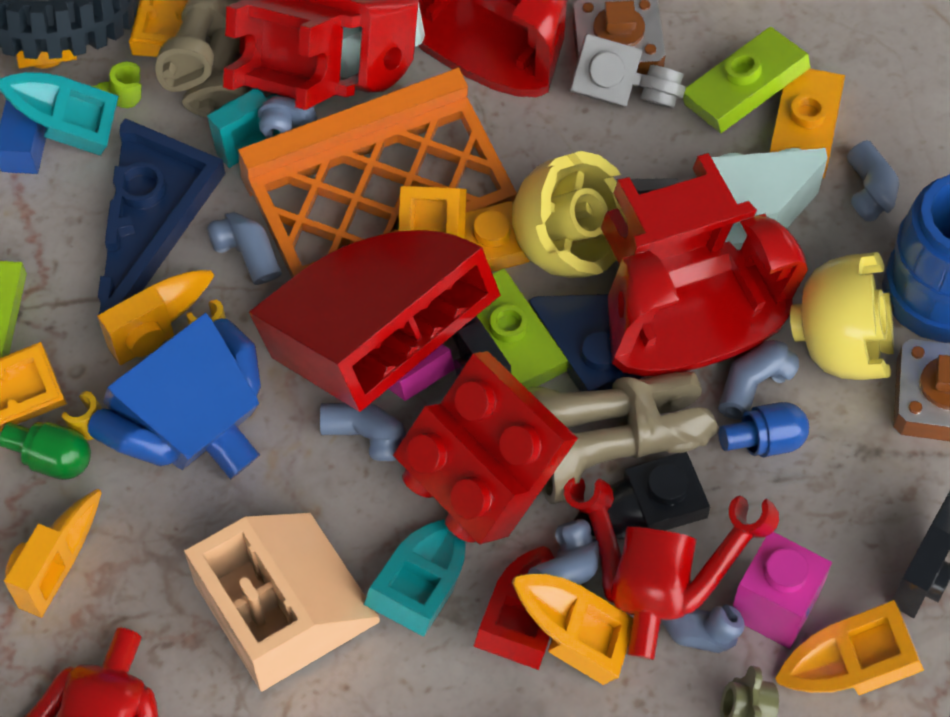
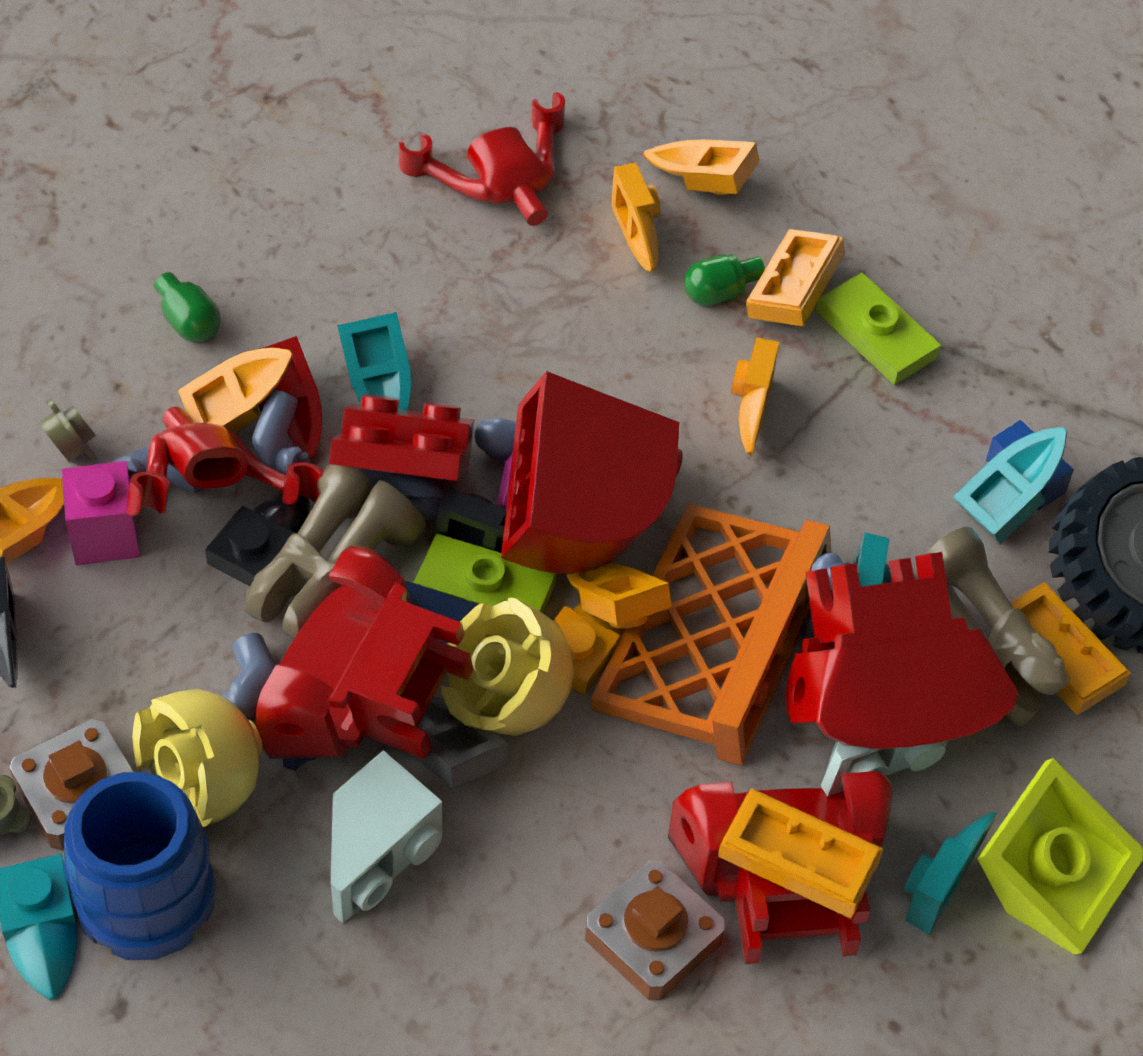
camera: 135 degrees right, 5 degrees down
(124, 82) = (1018, 549): lime hand -> none
(154, 202) = (857, 473): dark blue wing -> none
(182, 399) = (660, 353): blue torso -> none
(248, 239) = (770, 505): sand blue arm -> none
(278, 593) = (459, 279): light nougat slope -> none
(609, 70) = (612, 864): light grey plate -> none
(746, 79) = (487, 957): lime plate -> none
(767, 430) = (206, 642): blue cylinder -> none
(808, 112) = (400, 971): light orange plate -> none
(878, 179) = (276, 947): sand blue arm -> none

